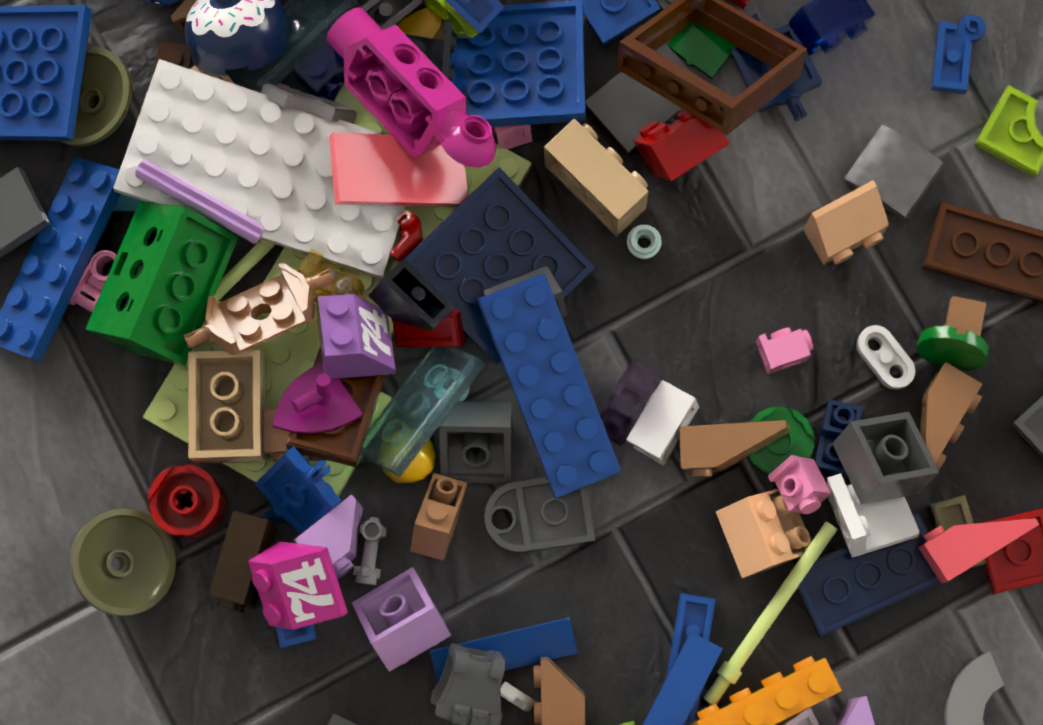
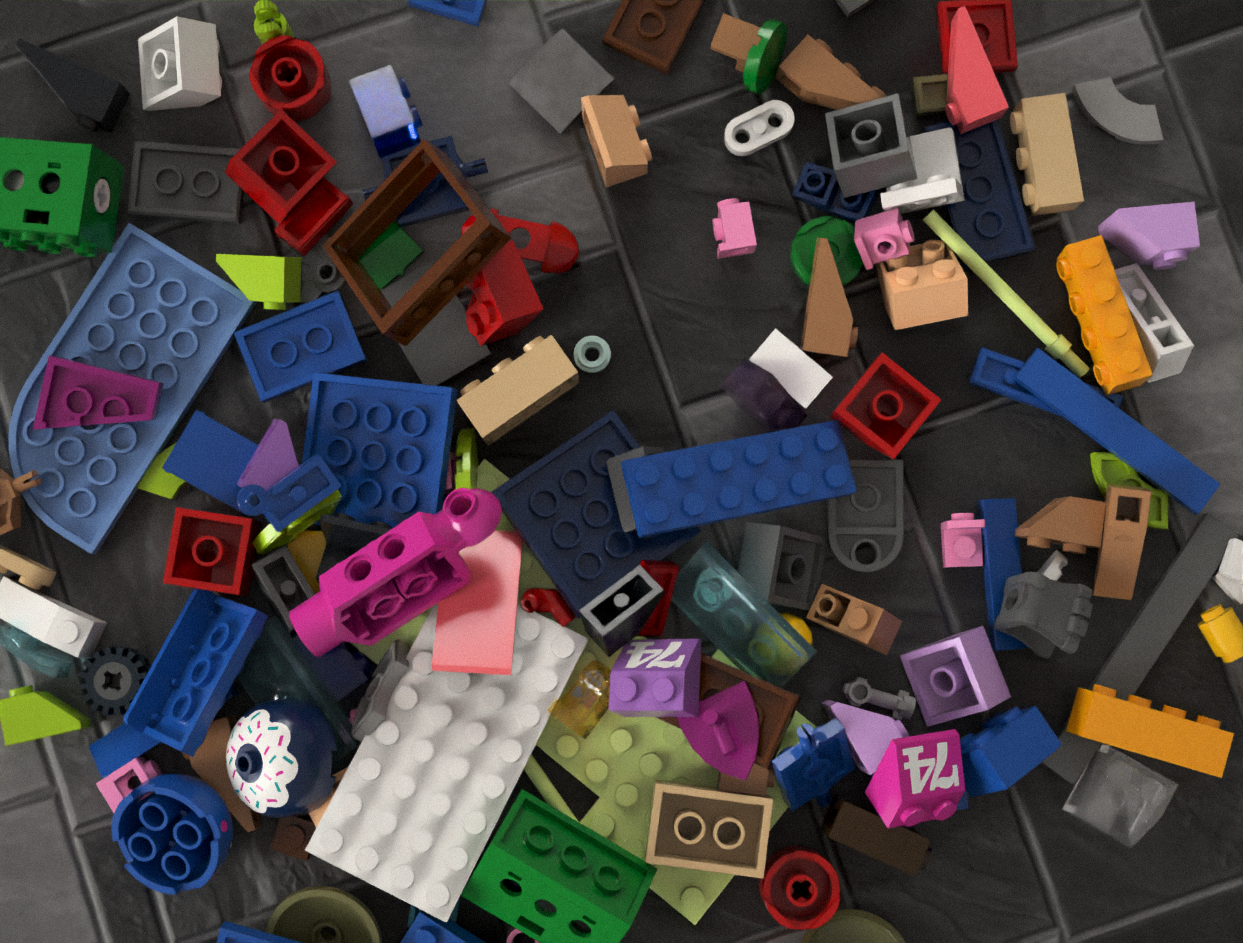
camera: 90 degrees left, 5 degrees up
(199, 201) = (479, 826): lavender axle -> none
(234, 321) = (614, 808): medium nougat plate -> none
(335, 667) = (1005, 749): none -> blue brick
(520, 146) = (467, 466): none -> lime tile
(528, 608) = (962, 541): none -> bright pink bracket
(639, 511) = (885, 407): none -> red slope
(736, 188) = (550, 245): none -> red piece
(914, 632) = (1047, 154): none -> tan brick

